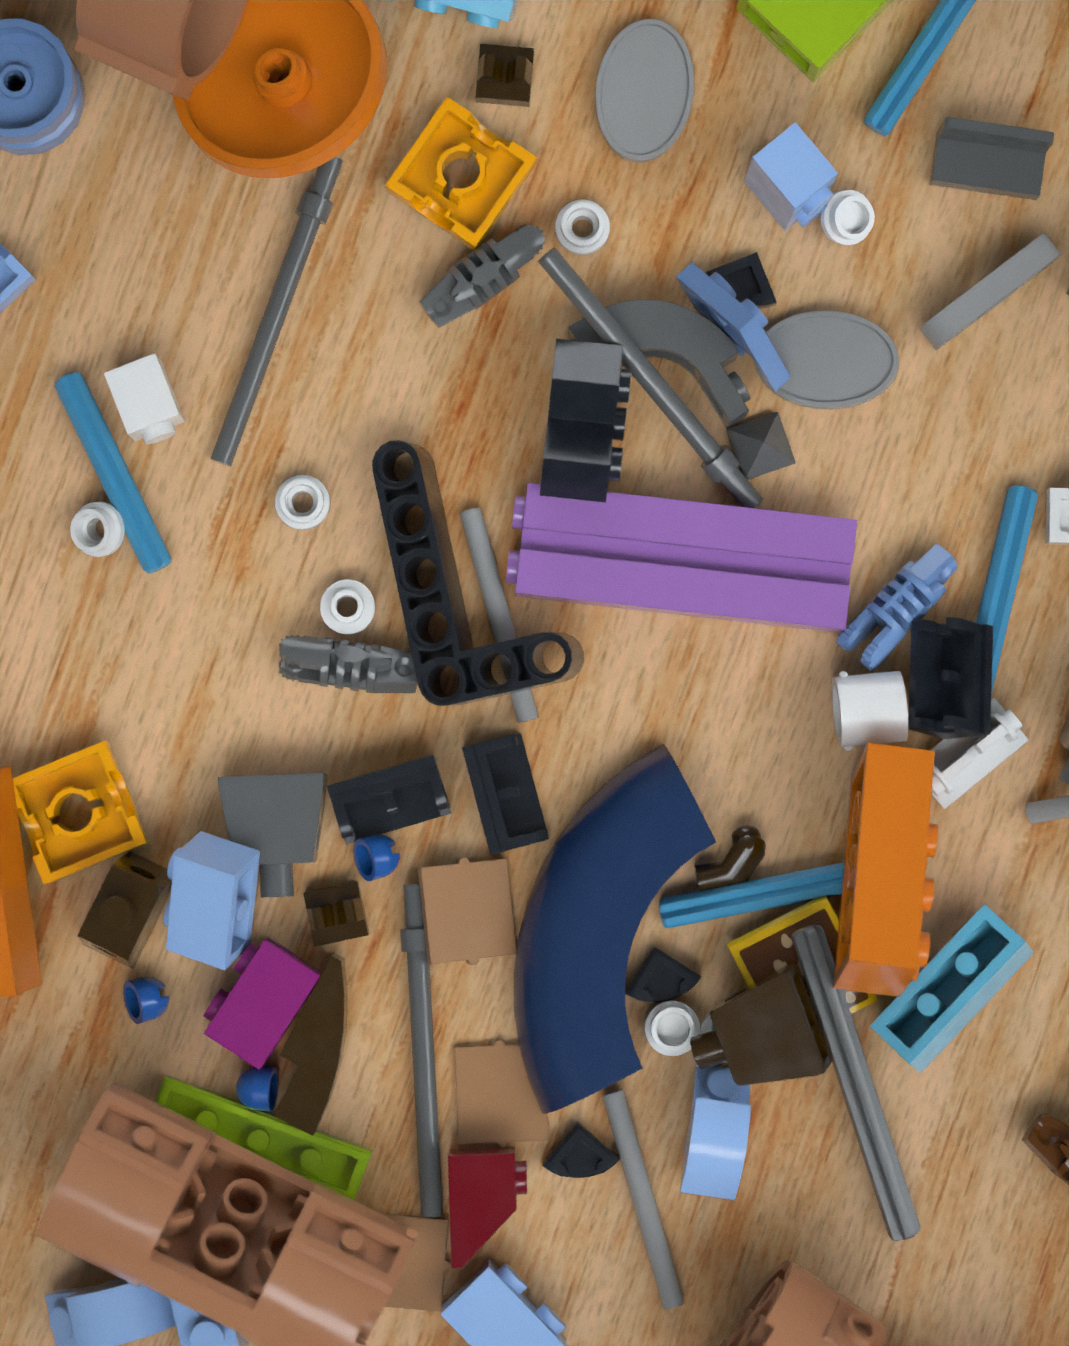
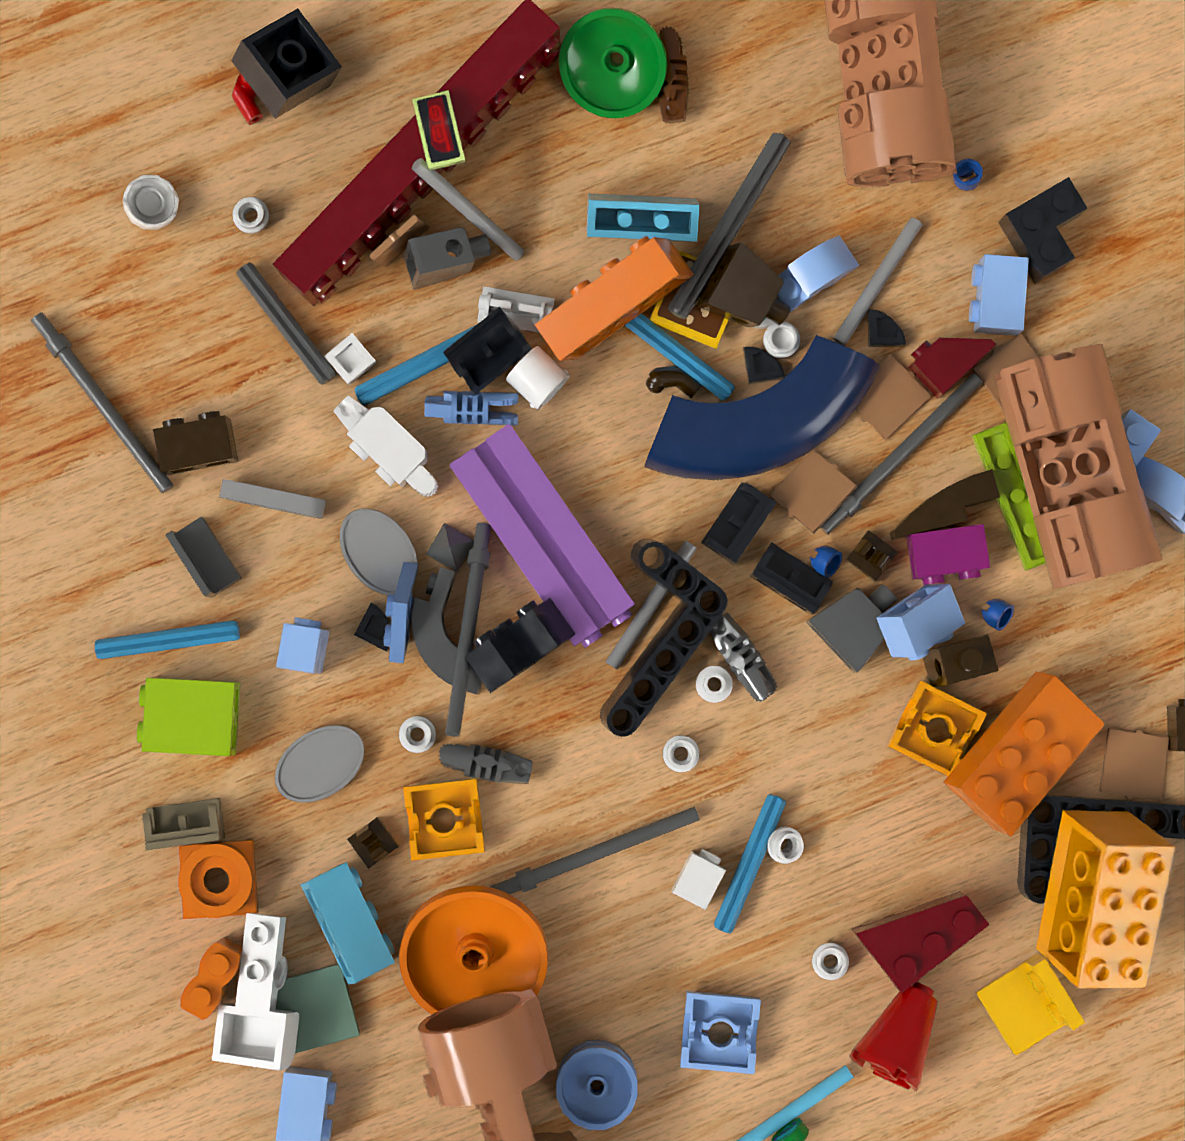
camera: 125 degrees left, 0 degrees up
(258, 1088) = (992, 517): blue hinge -> none
(847, 217) = (296, 603): white plate -> none
(938, 473) = (388, 444): none -> white hinge

